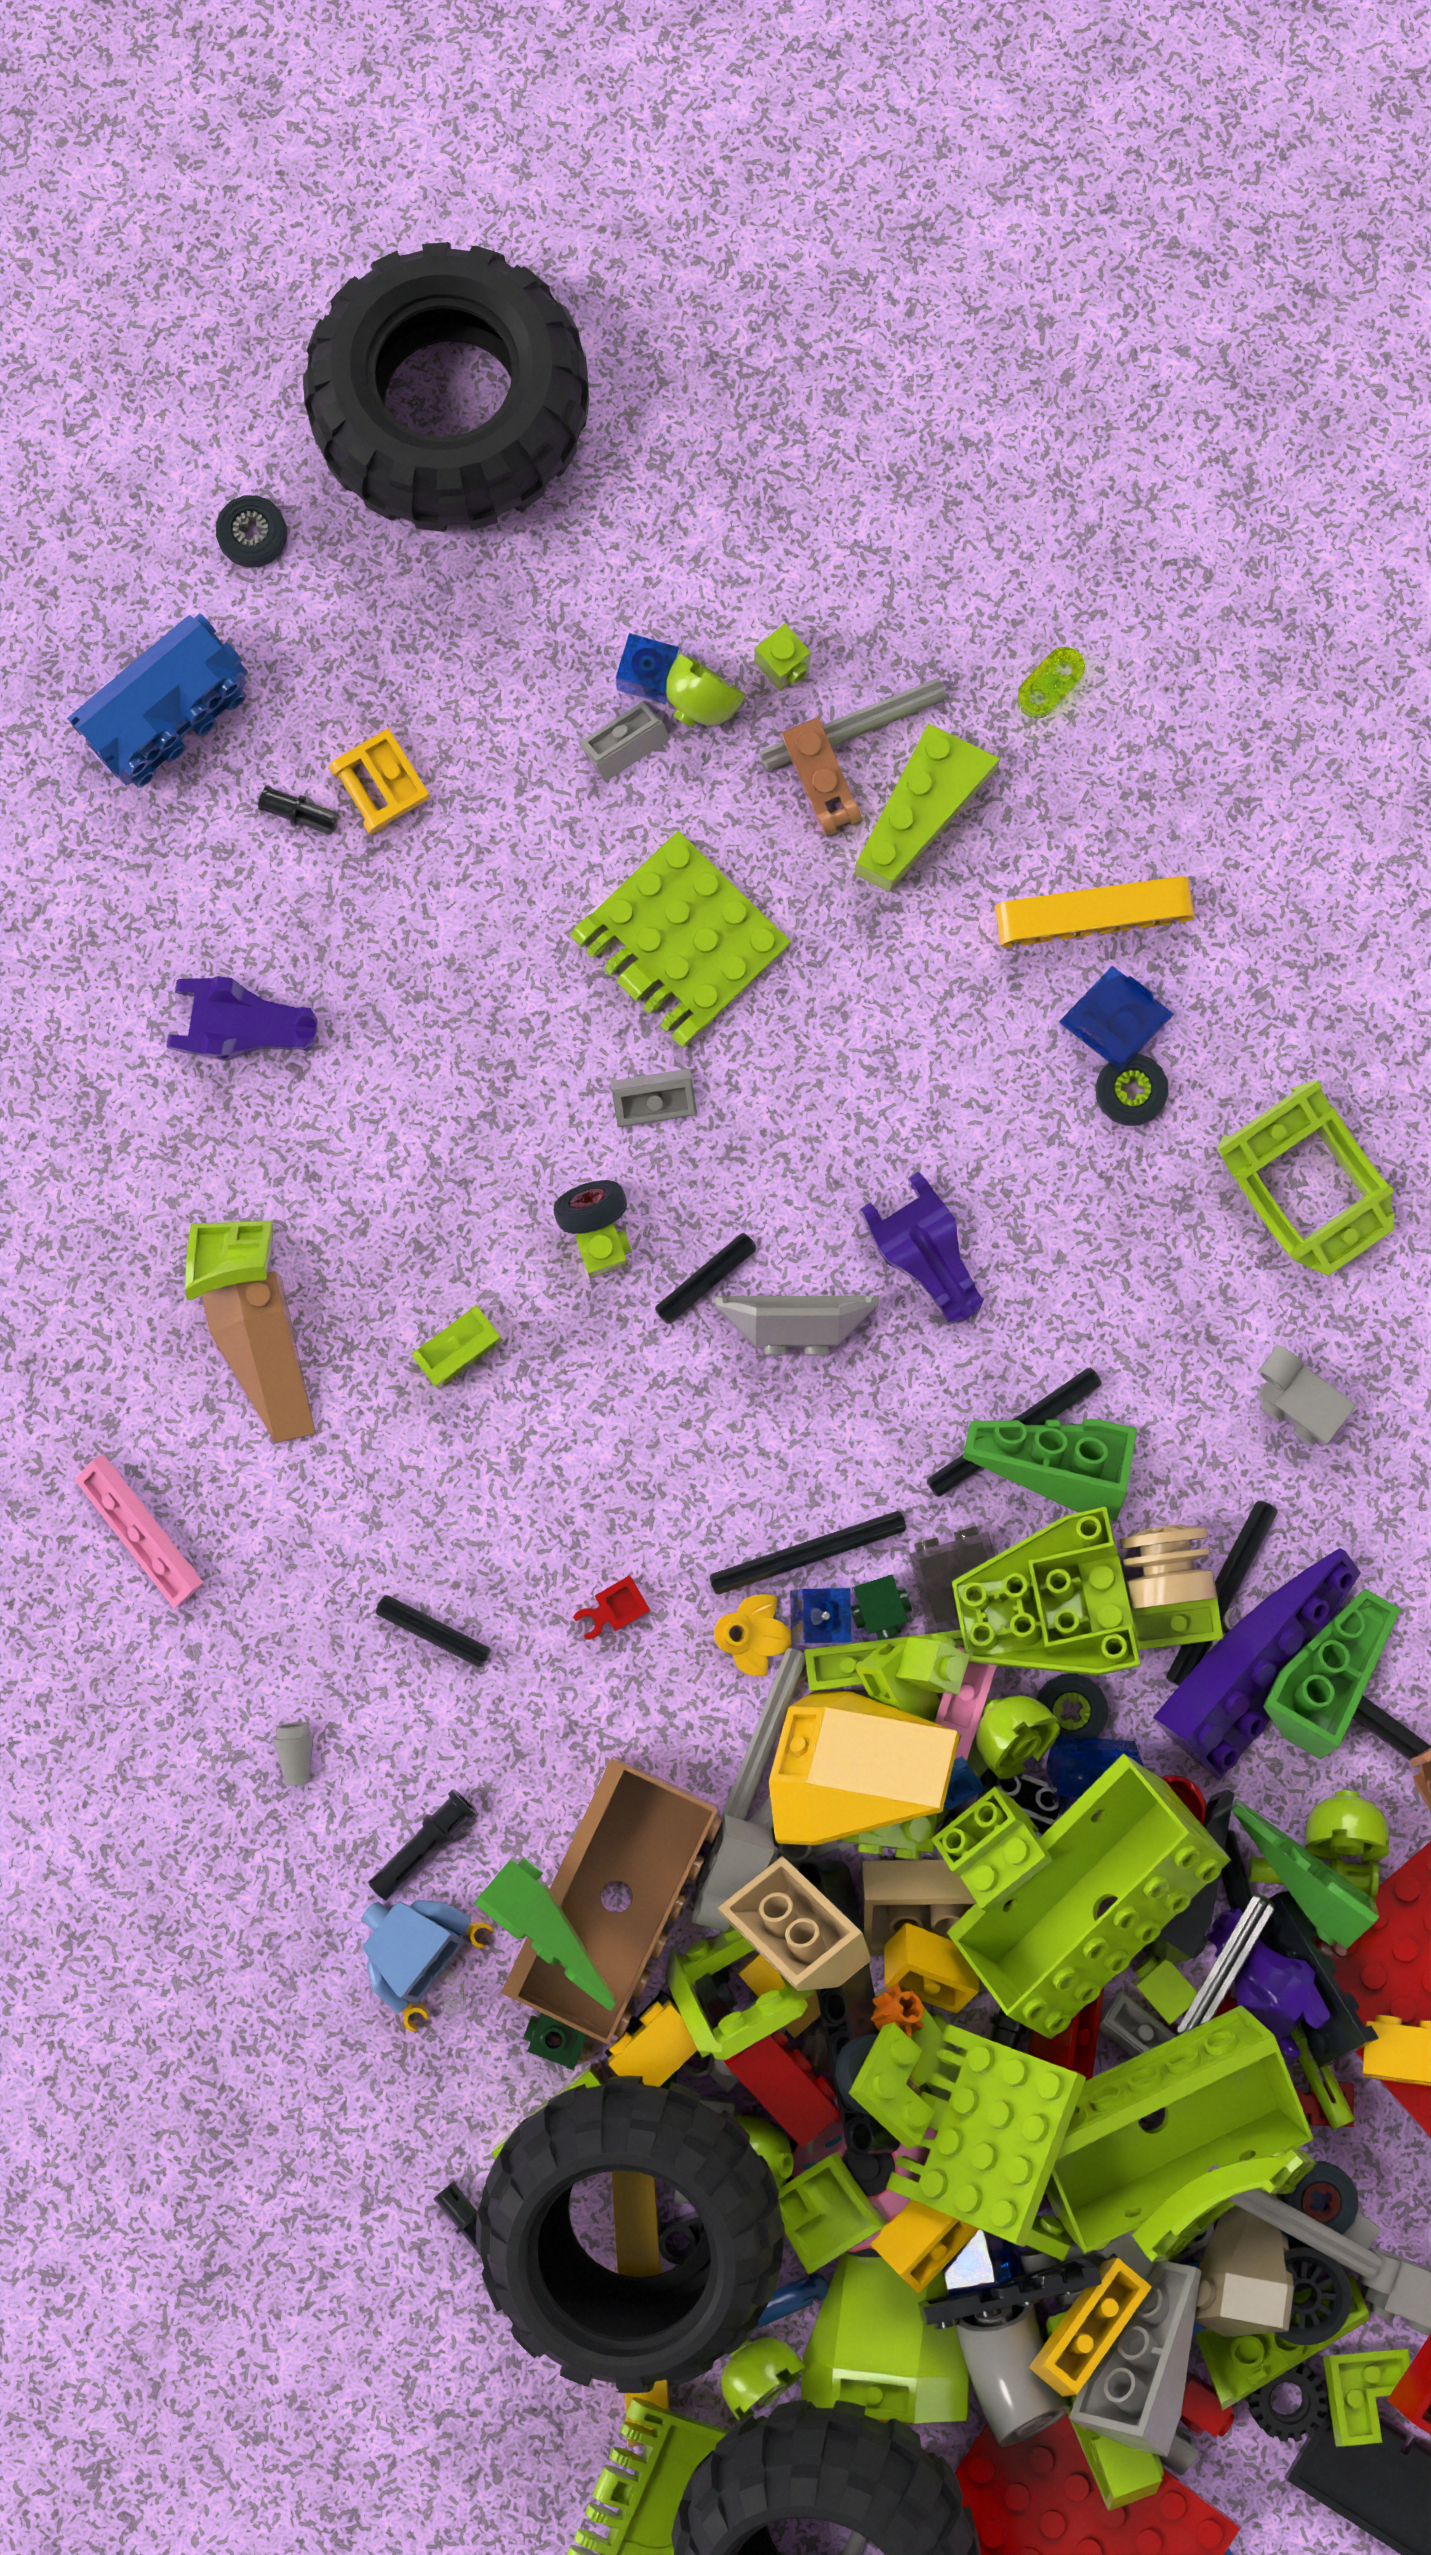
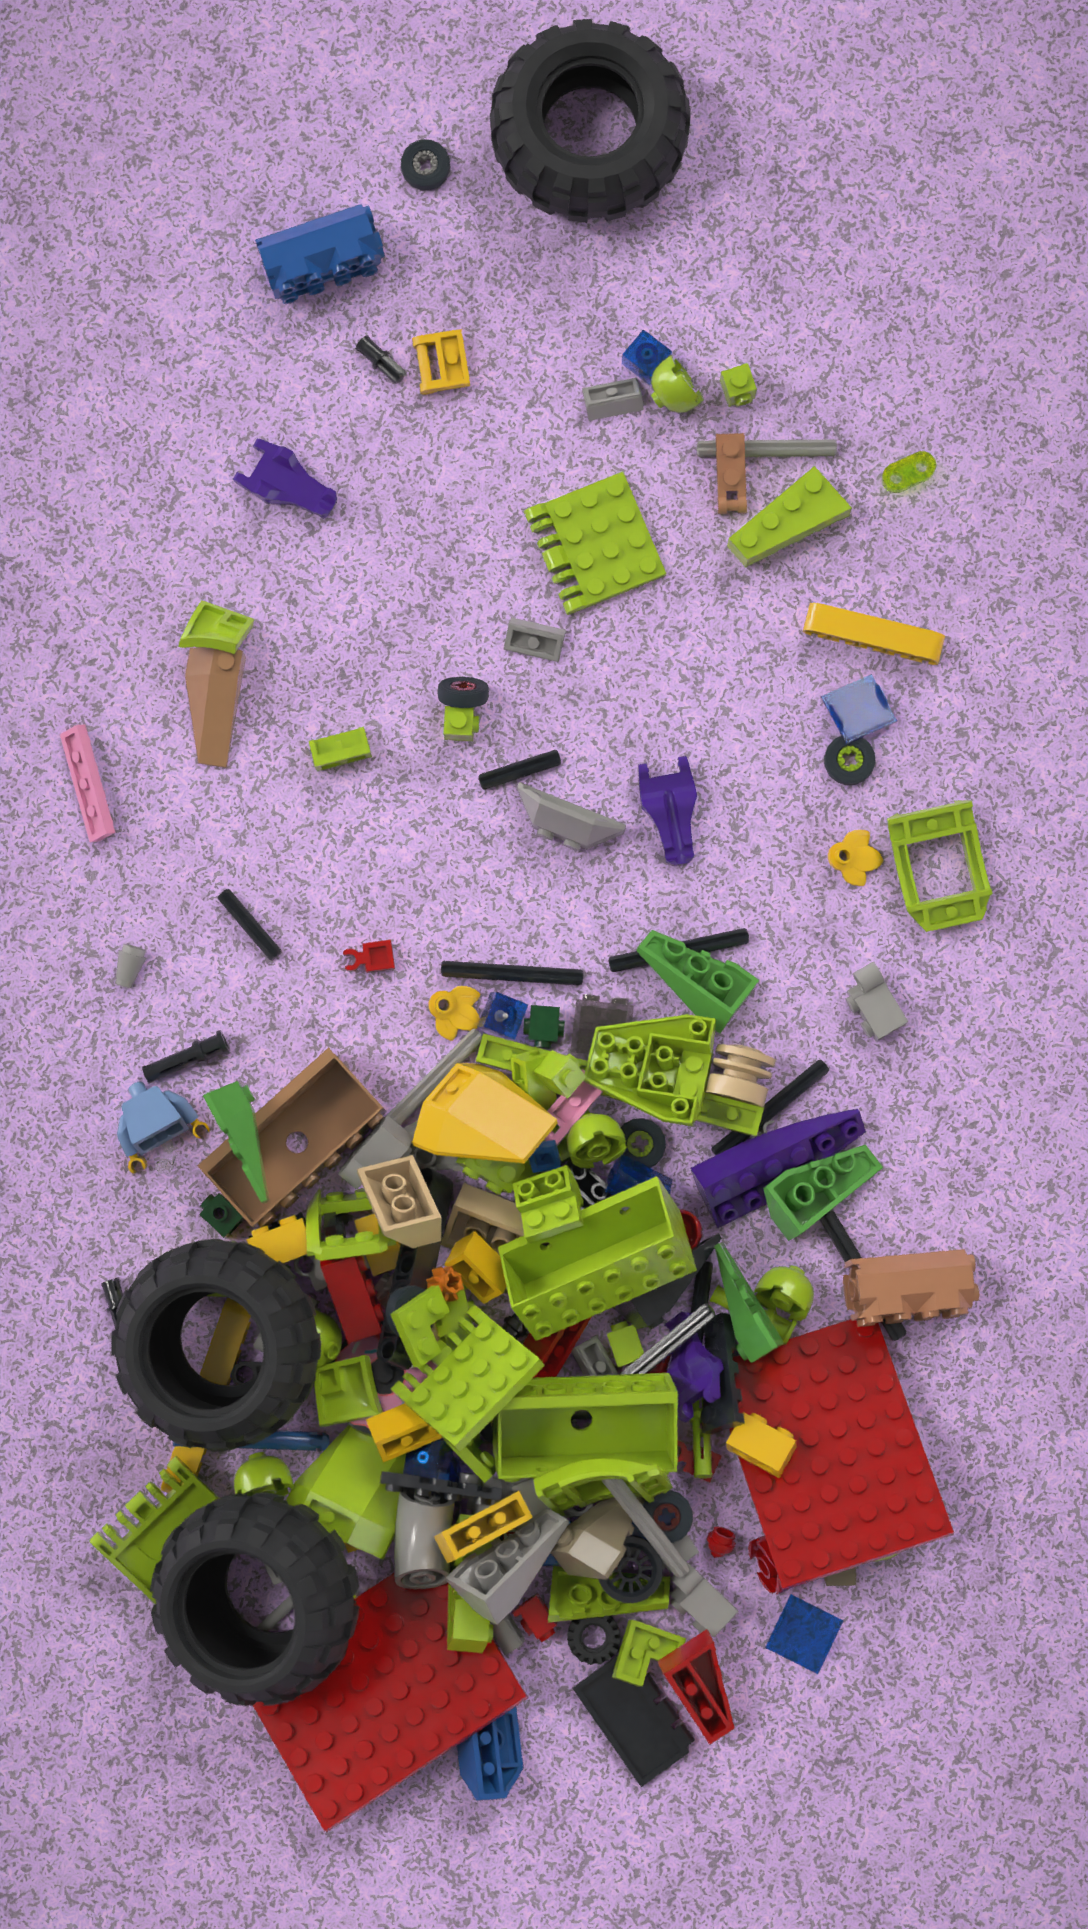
camera: 25 degrees right, 0 degrees up
(1198, 1213) = (859, 857): none -> yellow plate
(1399, 2198) = (721, 1541): none -> red plate

